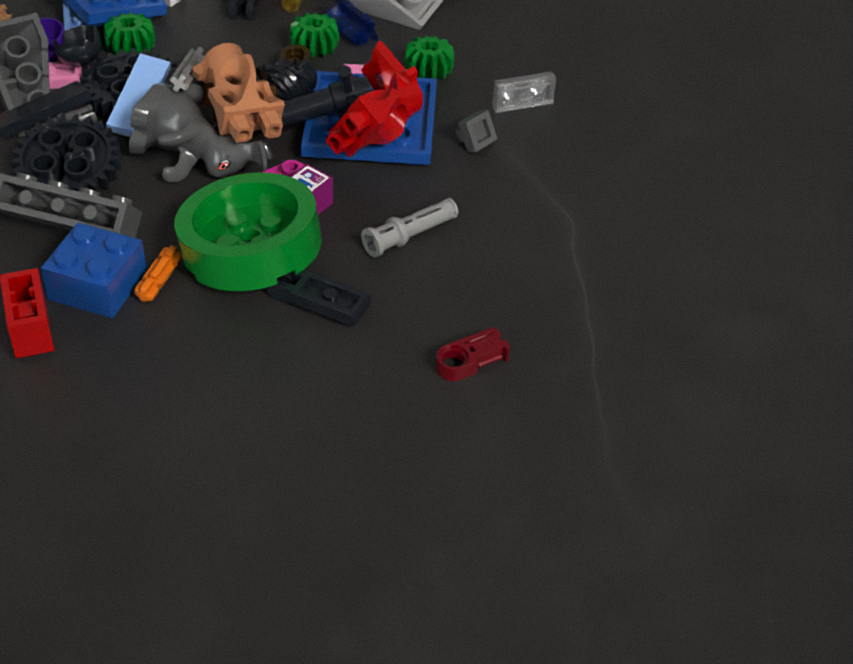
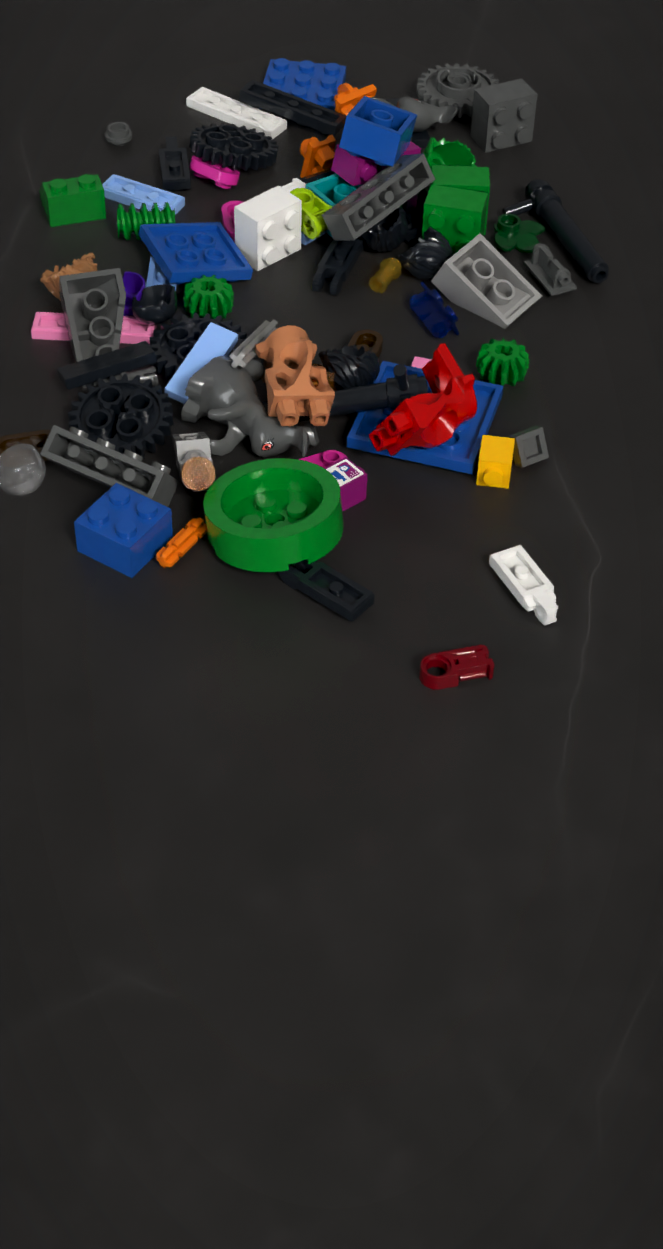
camera: 15 degrees right, 0 degrees up
(26, 313) = (54, 560): red brick -> none
(153, 189) = (194, 460): none -> plate
(316, 33) = (393, 320): green gear -> none
(398, 230) = (419, 536): light grey pin -> none
(450, 149) = (495, 461): none -> yellow brick
(515, 259) = (526, 582): none -> white hinge
(524, 91) = (590, 411): clear plate -> none

